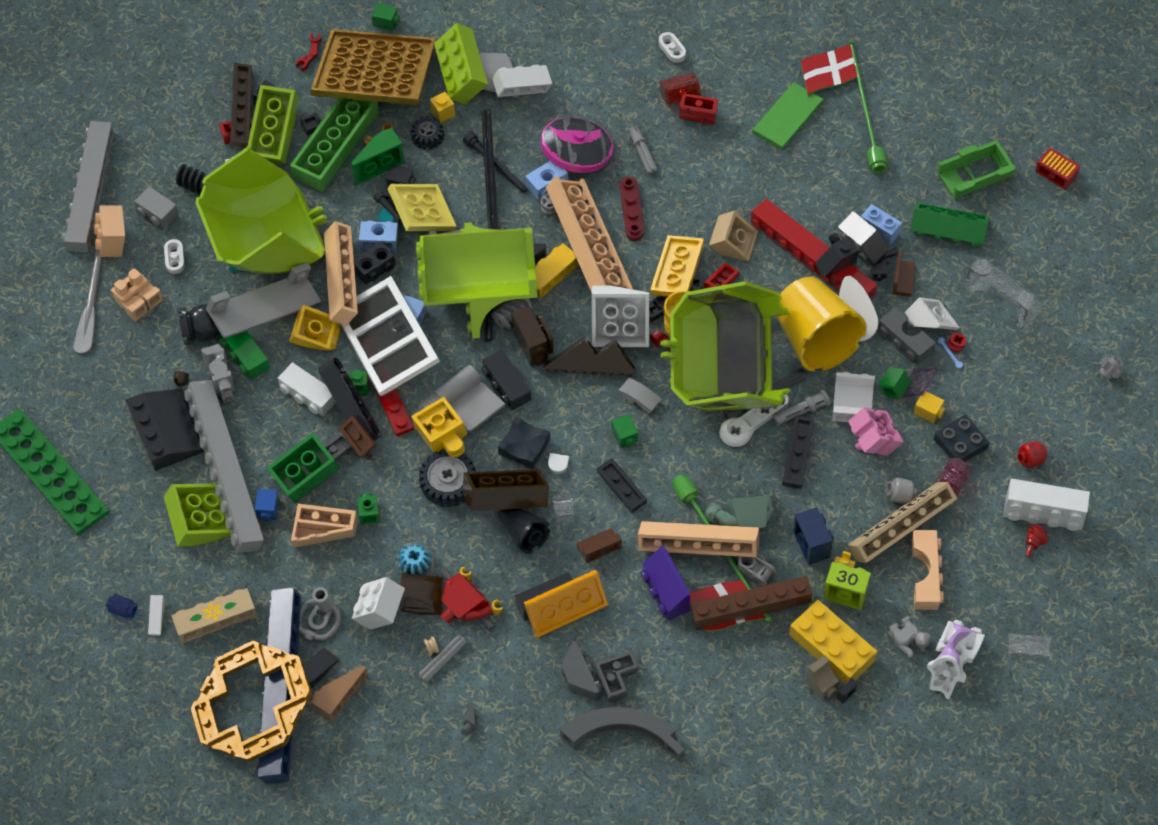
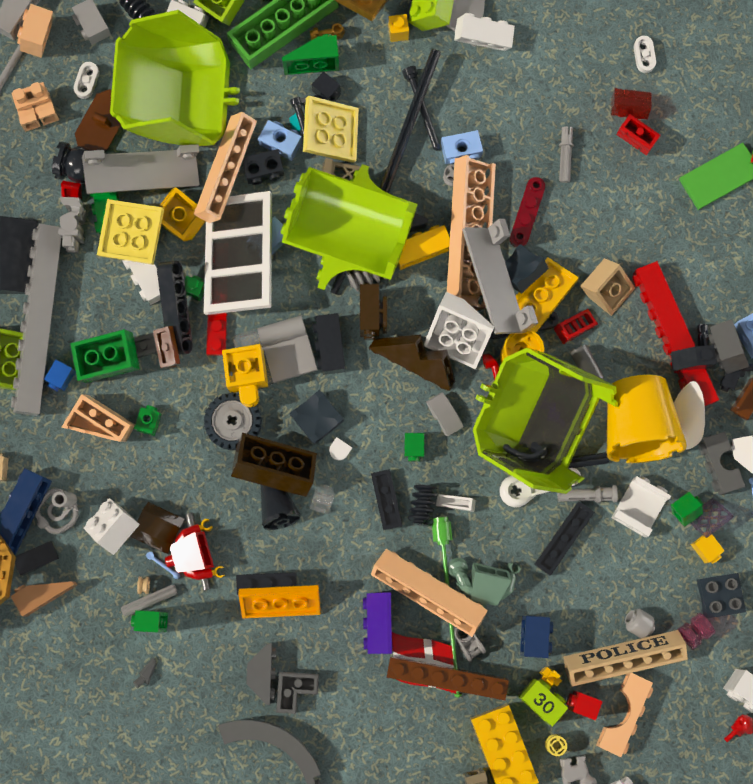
camera: 20 degrees right, 20 degrees up
(180, 378) = (39, 211): dark brown hinge -> none
(201, 345) = (71, 189): none -> red tile
(204, 280) = (98, 125): none -> reddish brown shield
(279, 355) = (130, 232): none -> light yellow plate
(421, 562) = (162, 498): medium azure gear -> none
(422, 128) = (373, 42): black wheel -> none
(454, 663) = (149, 621): none -> green brick
(457, 627) = (150, 555): none -> light blue hinge
(576, 144) = (505, 123): dish -> none
(599, 545) = (339, 549): reddish brown panel -> none
(631, 264) = (495, 280): none -> light grey bracket
(649, 251) = (524, 268): none -> black brick
(656, 474) = (422, 504): none -> black piece
(688, 462) = (456, 502): none -> white piece
(737, 386) = (538, 452): none -> black piece
(875, 432) = (643, 555): bright pink brick -> none
(876, 624) = (556, 745): none -> light yellow wheel
(885, 573) = (584, 705): none -> red brick

